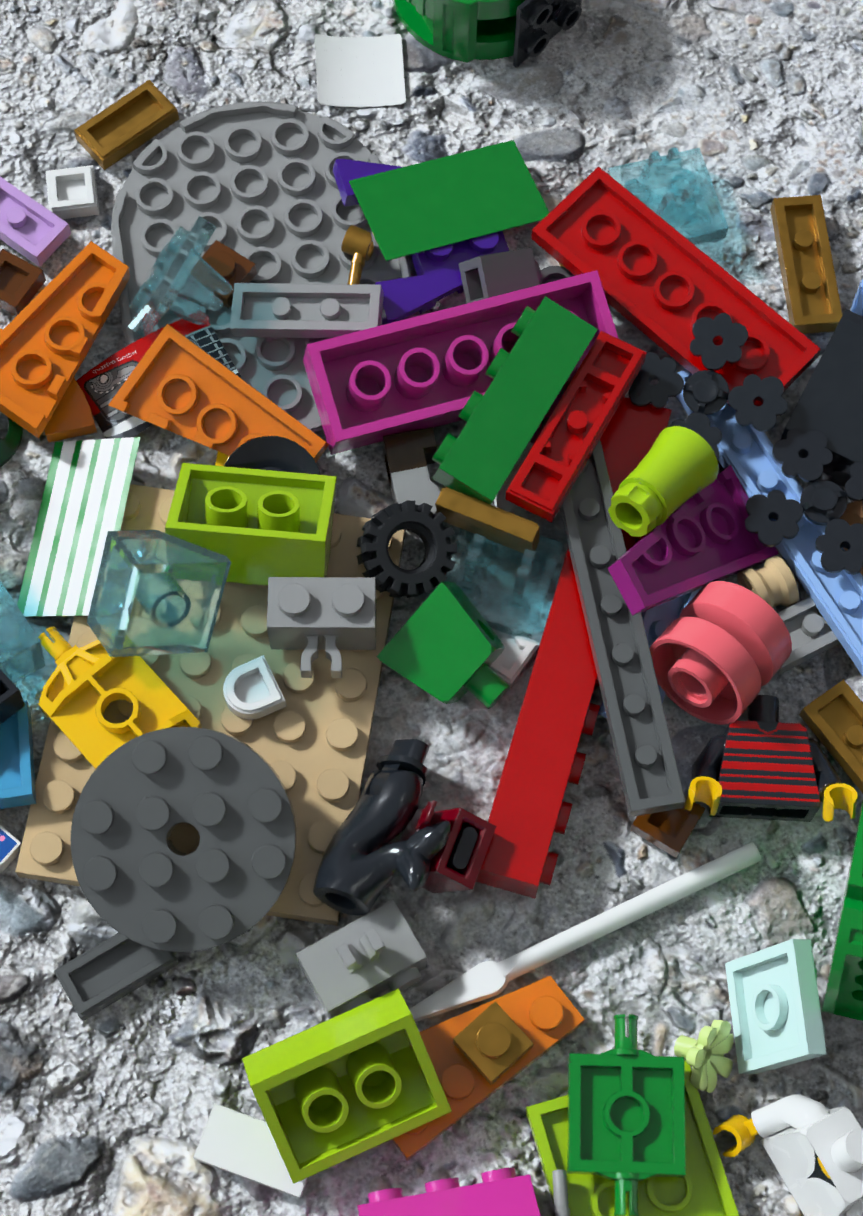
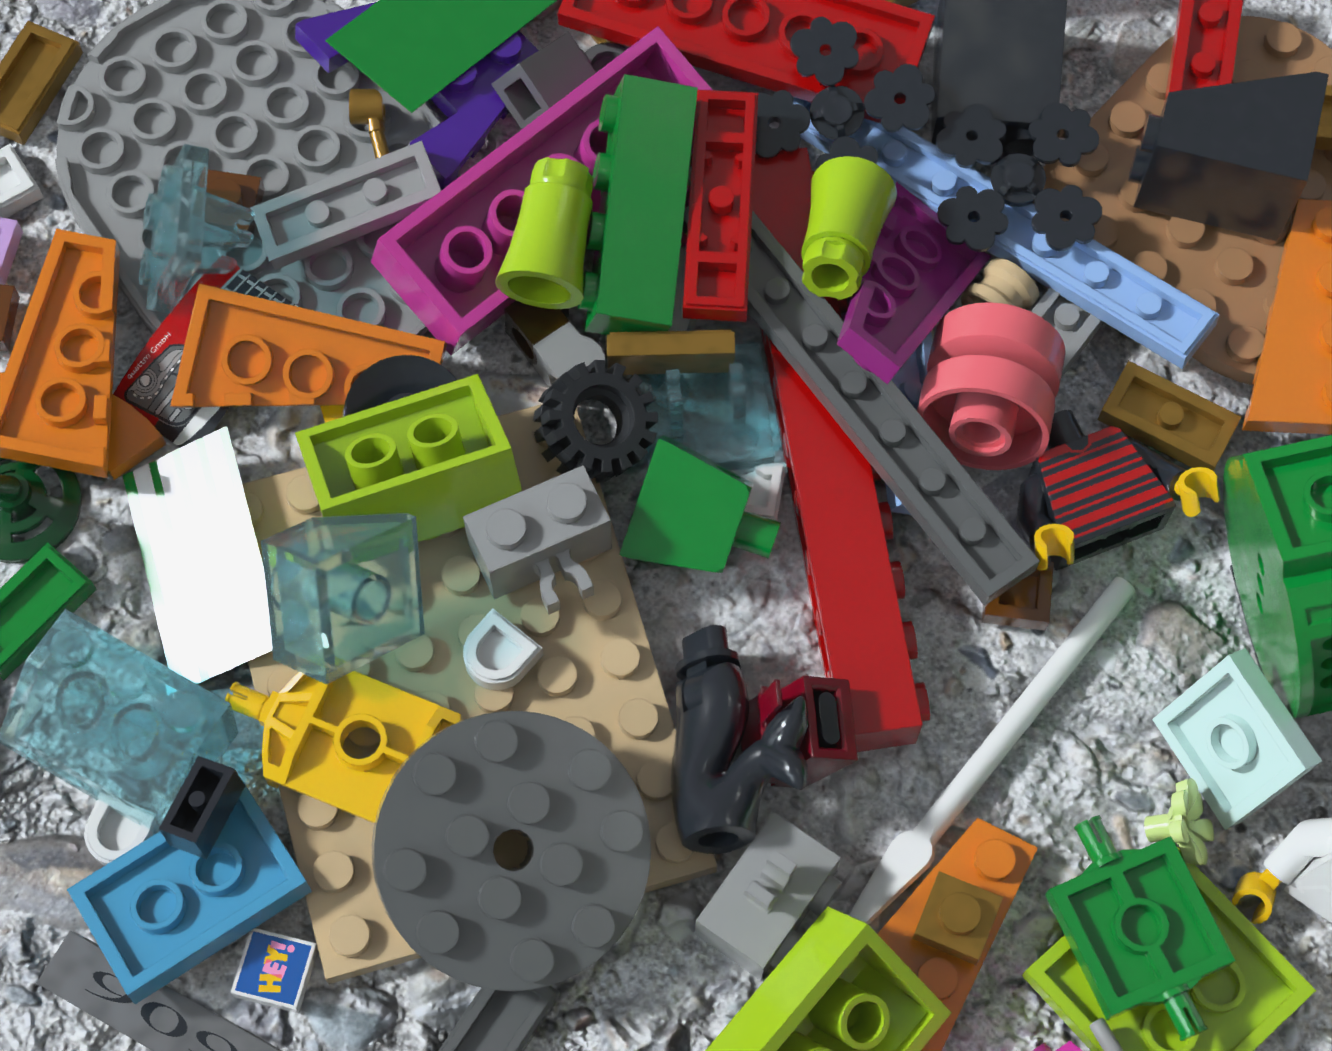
camera: 25 degrees left, 0 degrees up
(433, 395) = (550, 237): none -> lime plant

